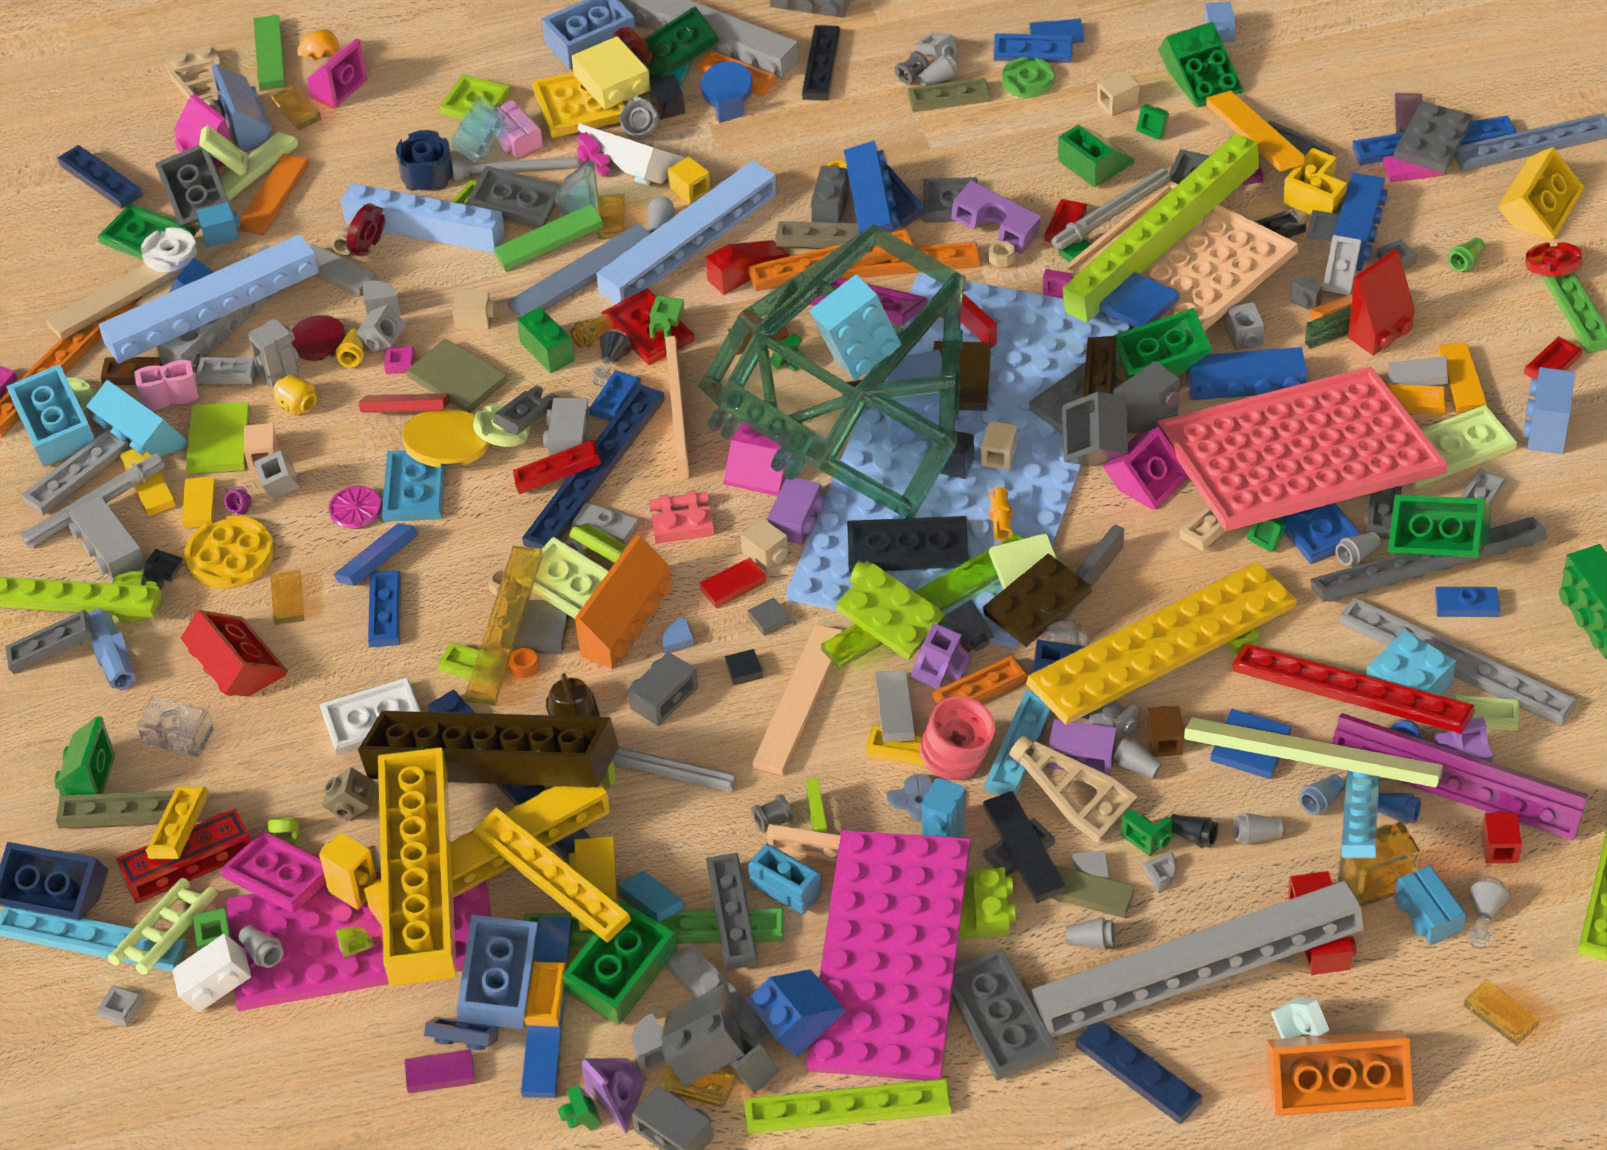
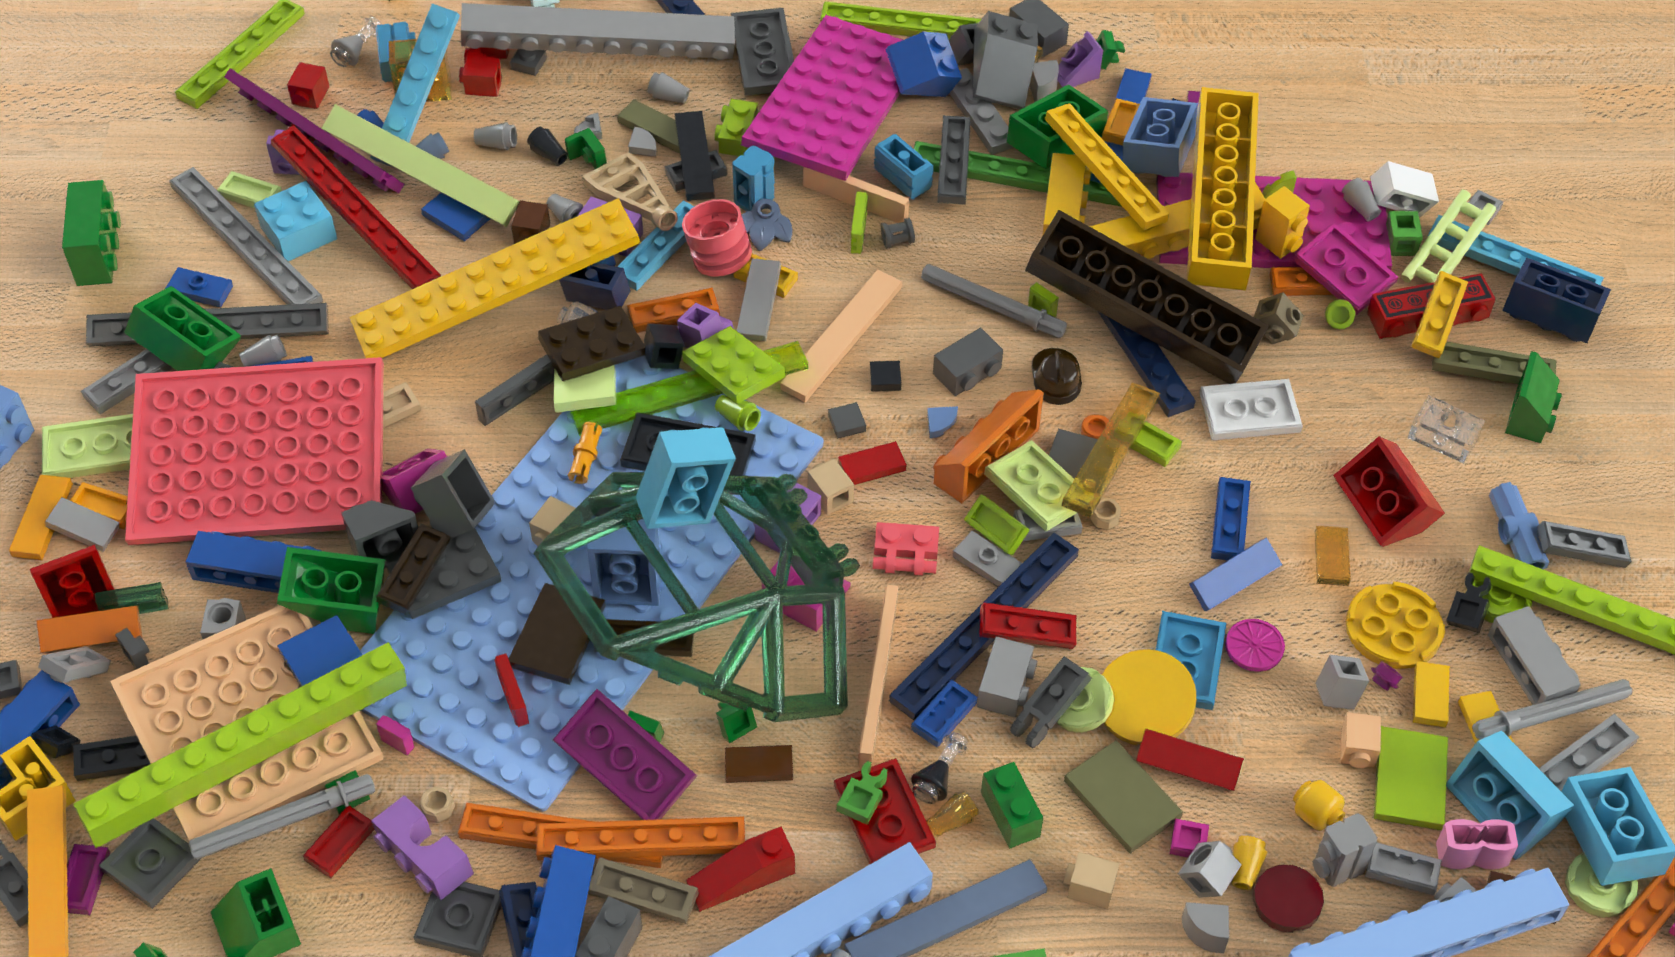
camera: 170 degrees left, 5 degrees up
(650, 896) = (1019, 187): dark azure tile -> none

